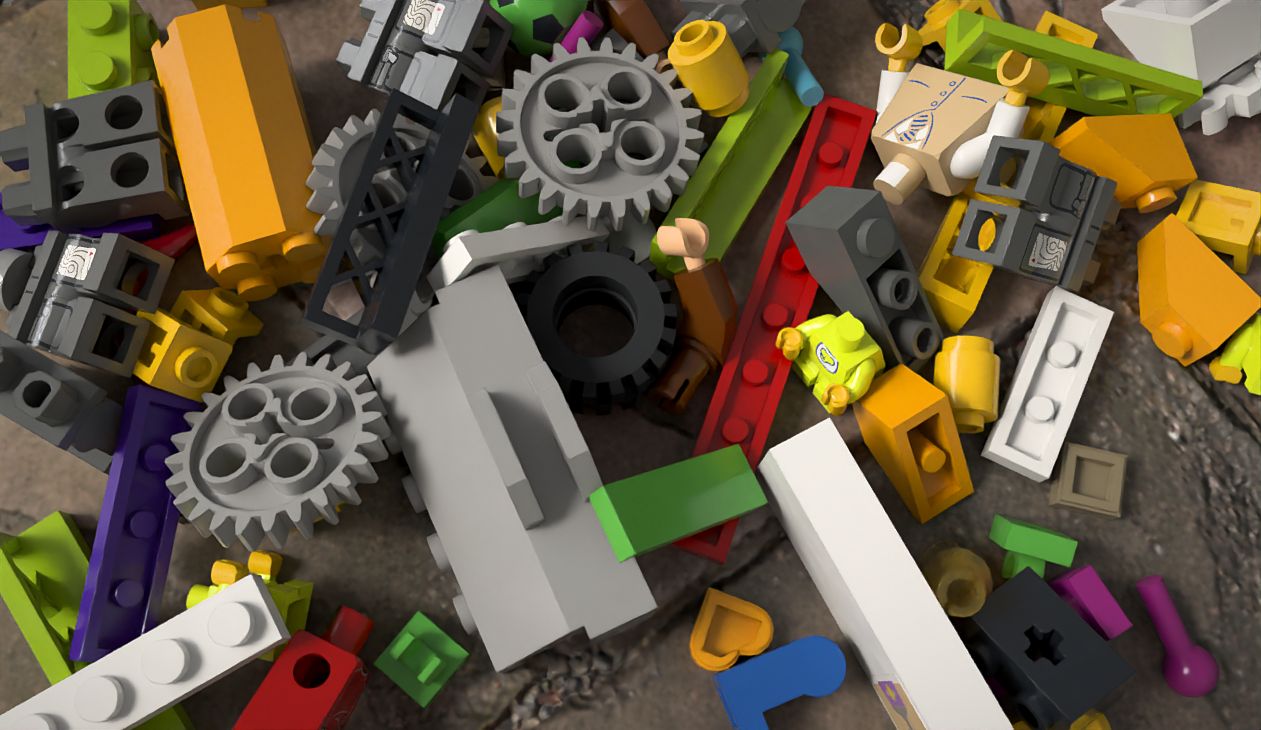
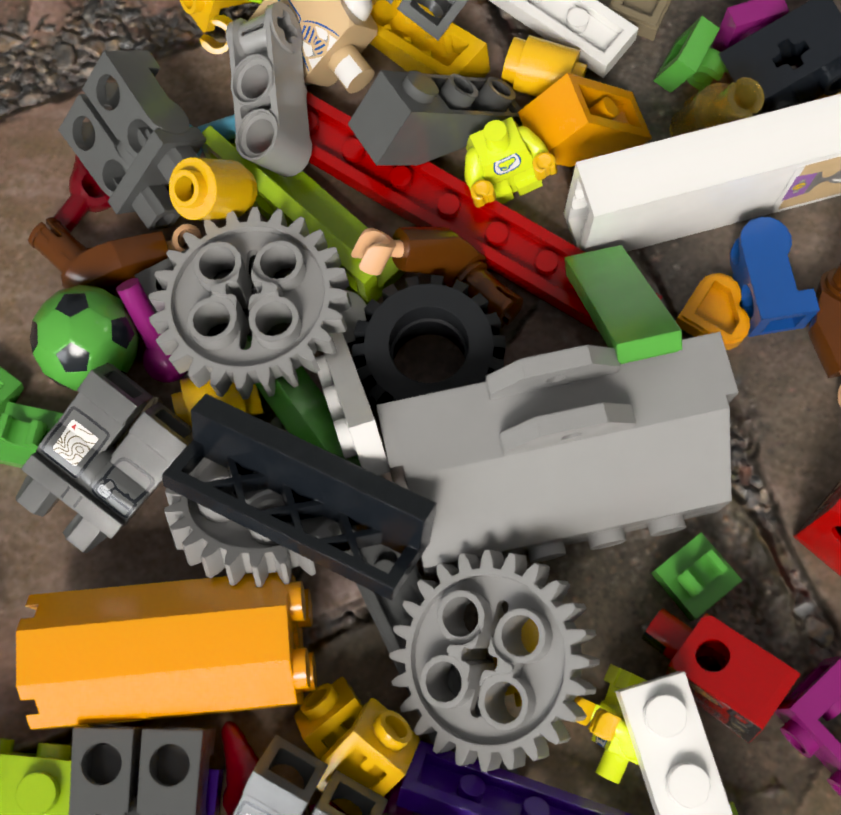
camera: 70 degrees left, 0 degrees up
(842, 99) = (270, 90): none -> light grey piece

